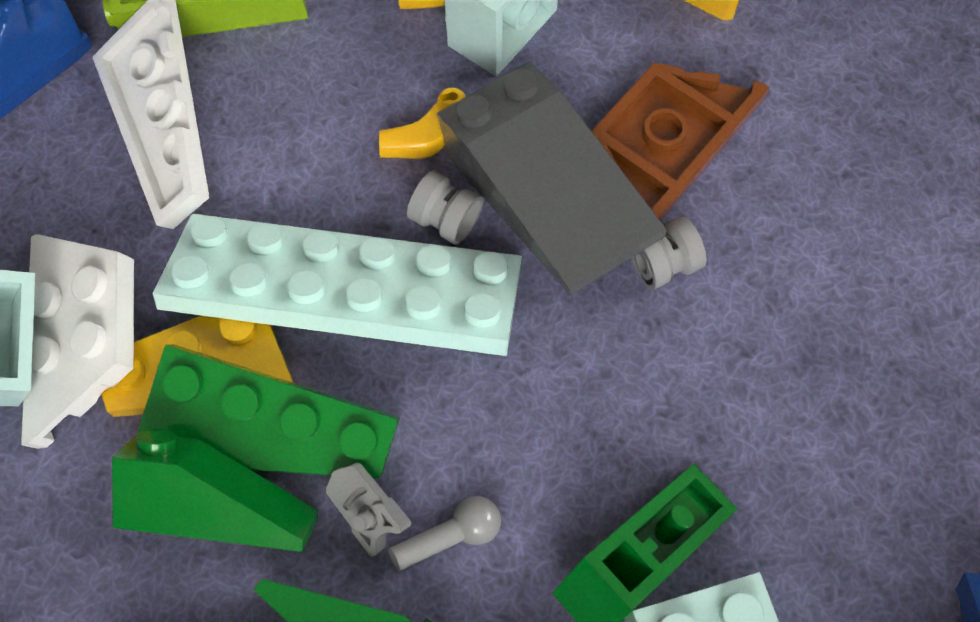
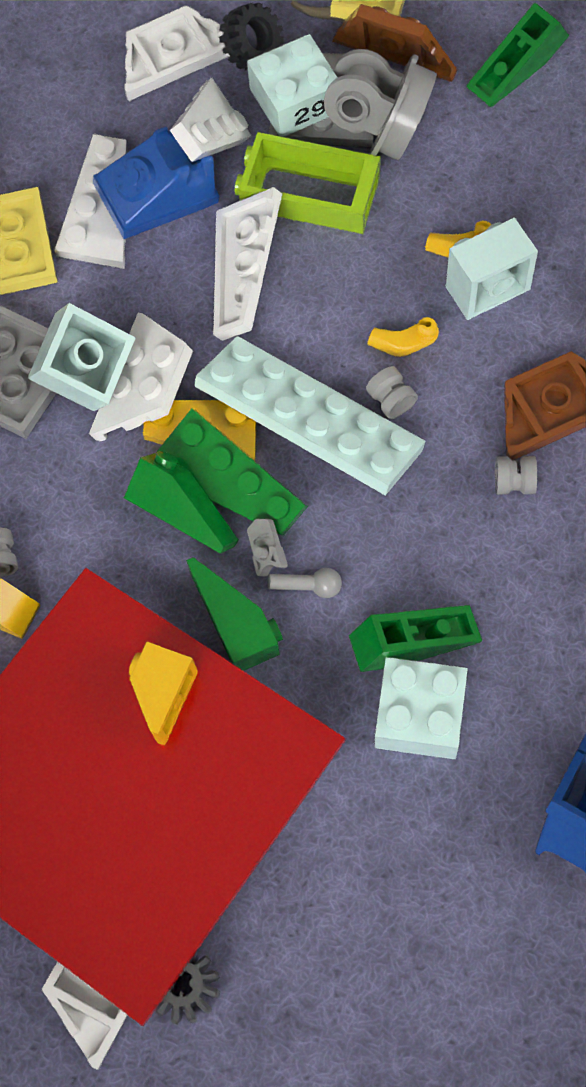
camera: 30 degrees right, 0 degrees up
(548, 177) = (461, 397): dark grey slope -> none

